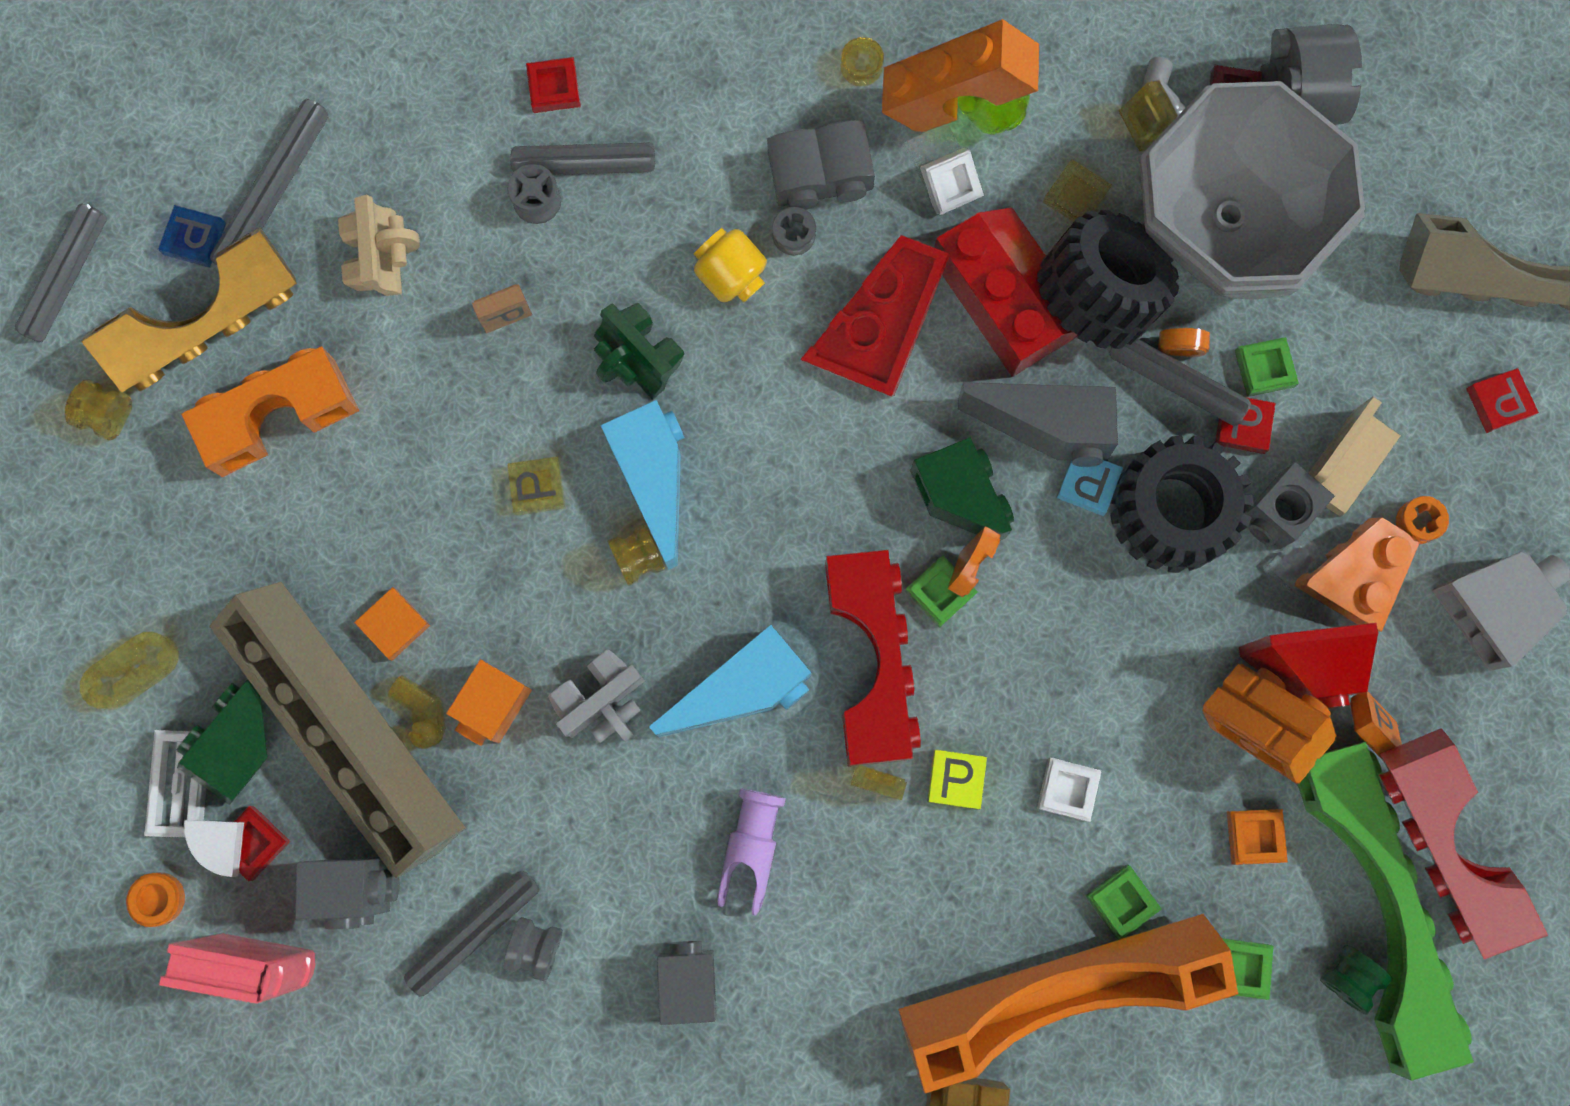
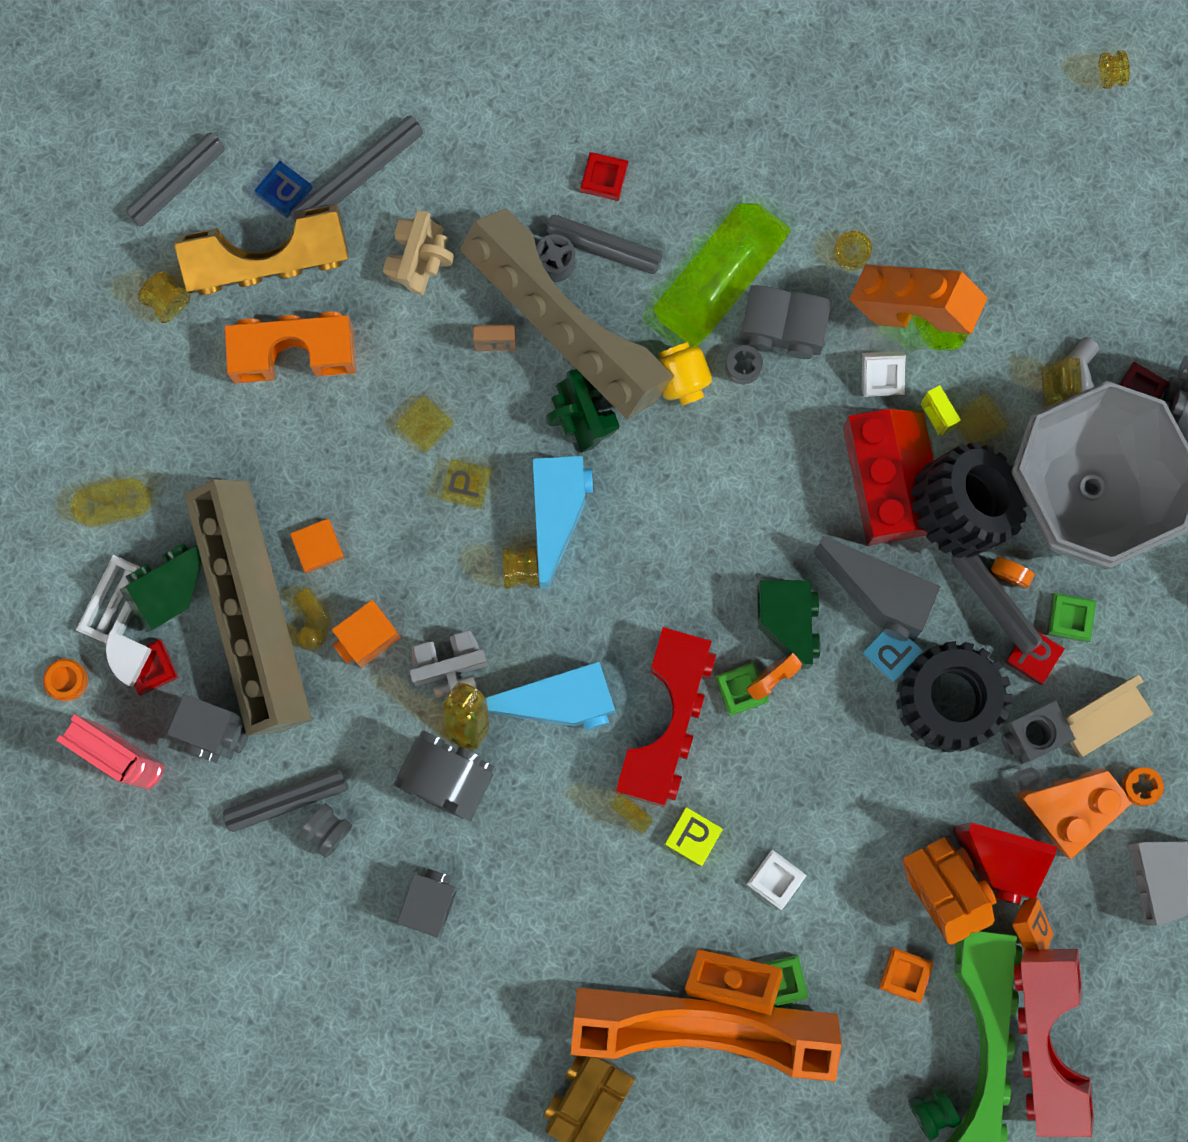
camera: 25 degrees right, 0 degrees up
(461, 436) = (424, 424): none -> clear yellow tile
(643, 749) = (466, 716): none -> clear yellow beam
(646, 829) = (445, 776): none -> dark grey brick
(650, 284) = (616, 367): none -> dark tan arch
(727, 139) = (721, 272): none -> clear neon green piece
(752, 842) = (519, 820): lavender piece -> none
(883, 319) = (781, 463): red wing -> none
(1031, 197) = (940, 411): none -> neon yellow tile
(1073, 927) = (734, 981): none -> orange plate
(1252, 967) = (855, 1069): bright green tile -> none

